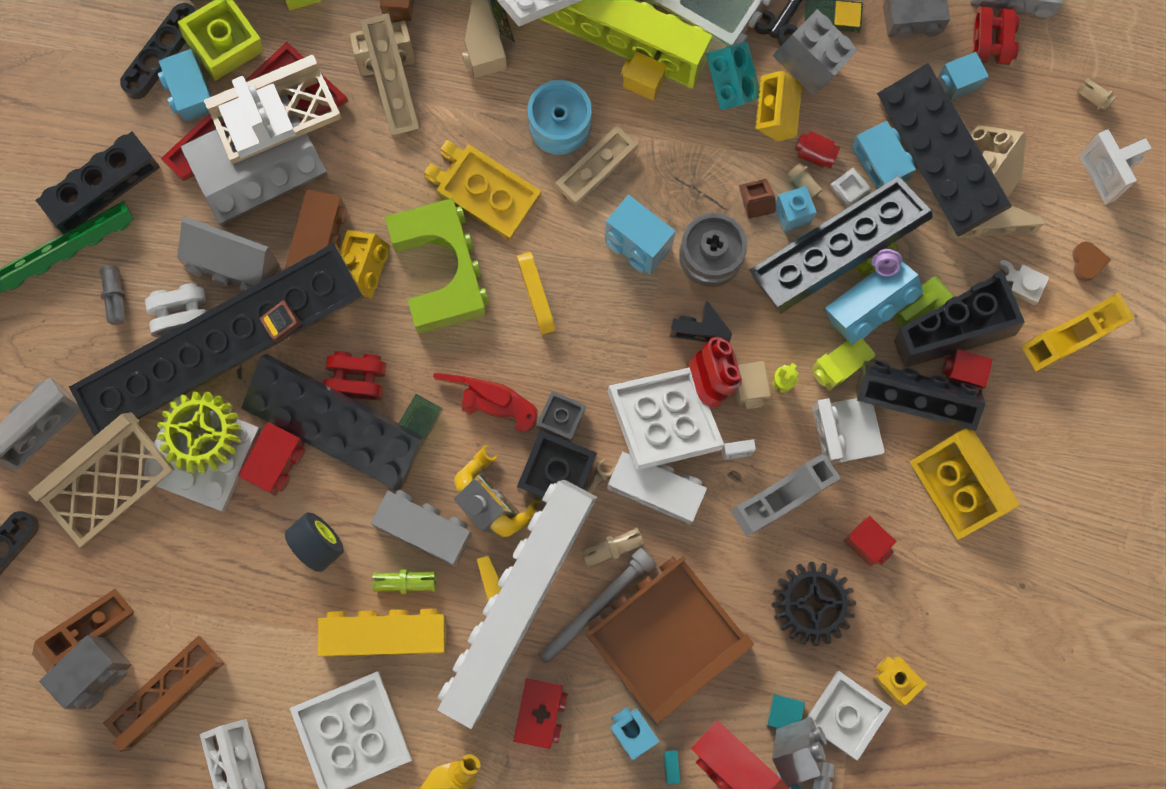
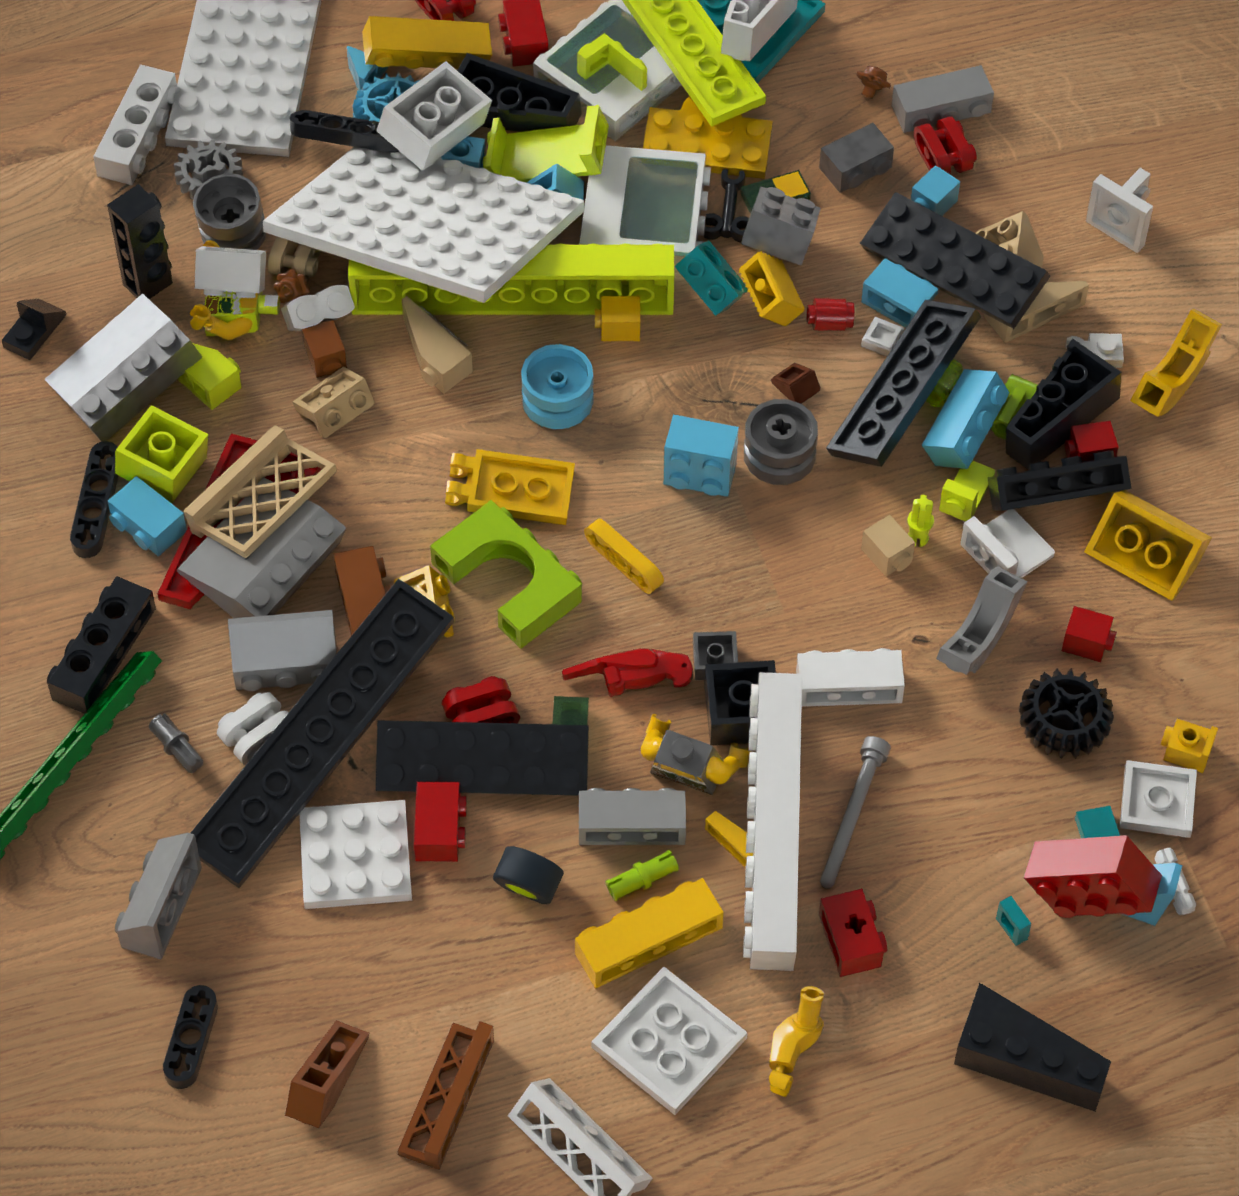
camera: 25 degrees left, 20 degrees down
(85, 459) = (240, 901): tan fence -> none
(86, 673) = (359, 1098): flat silver brick -> none
(197, 445) = (326, 831): neon yellow gear -> none
(255, 118) = (249, 501): white bracket -> none
(280, 321) = (383, 675): slope -> none
(389, 74) = (361, 416): tan plate -> none
(596, 165) = (617, 418): tan plate -> none
(612, 548) = (836, 753): tan pin -> none
(639, 738) = (957, 899): medium azure brick -> none
(664, 419) = (822, 607): white plate -> none
(667, 639) = (939, 811): dark orange panel -> none
(711, 327) = (817, 516): black slope -> none
(715, 372) = (848, 544): red brick -> none
(738, 449) = (910, 608): white tile -> none
(795, 209) = (844, 370): medium azure brick -> none
(799, 751) = (1138, 826): flat silver brick -> none
(802, 178) = (834, 348): tan pin -> none
(887, 262) = (964, 379): lavender plate -> none
(1088, 260) = (1150, 305): dark orange tile -> none
(1096, 94) = (1071, 160): tan pin -> none

